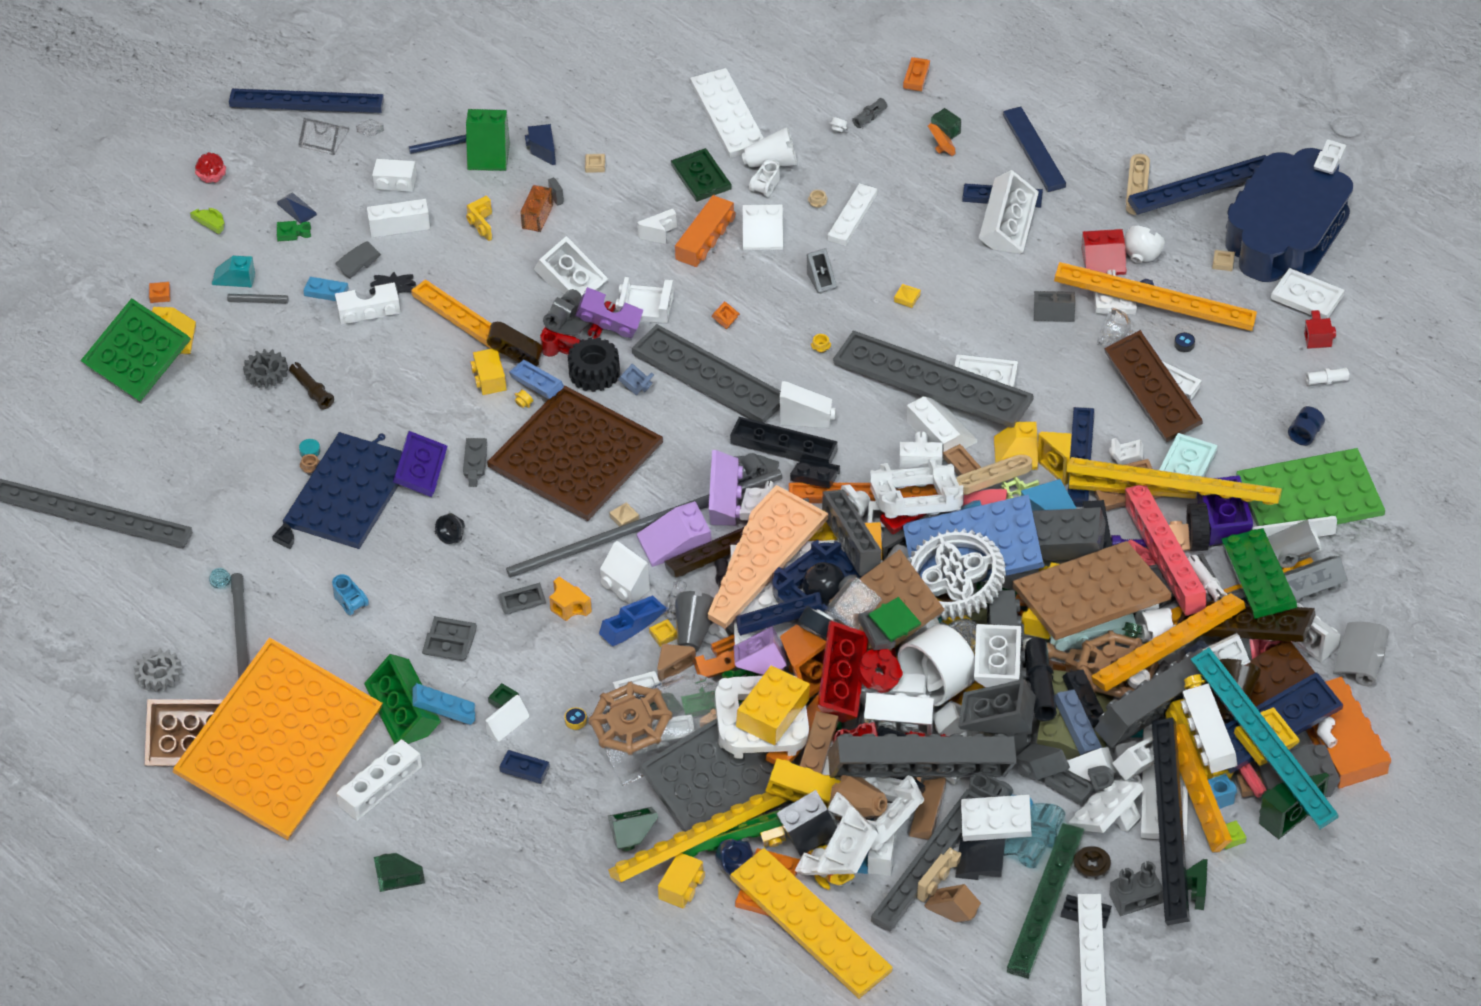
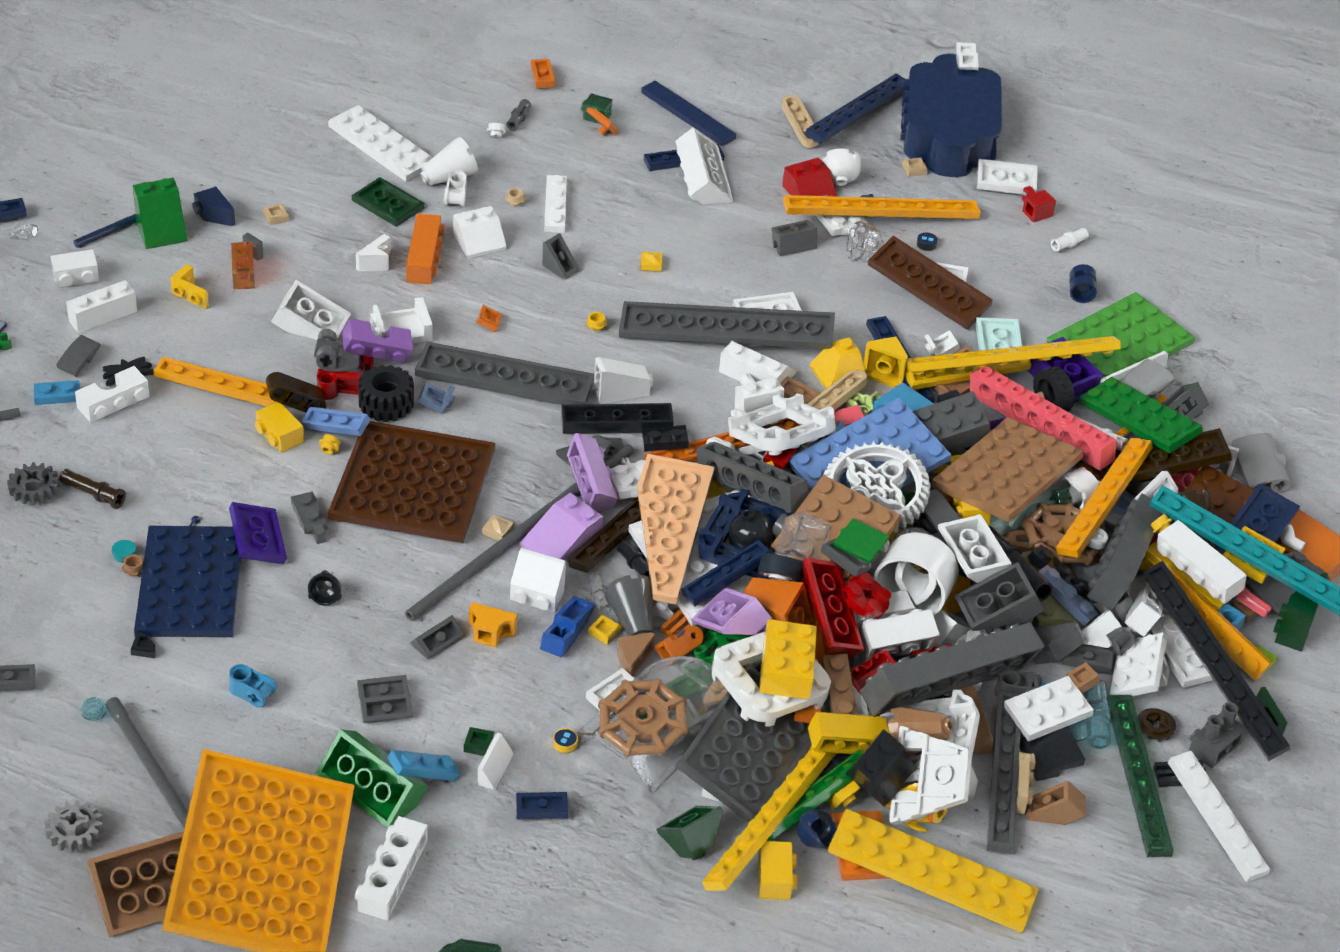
camera: 30 degrees left, 5 degrees down
(1042, 800) = (1084, 677): none -> medium nougat plate

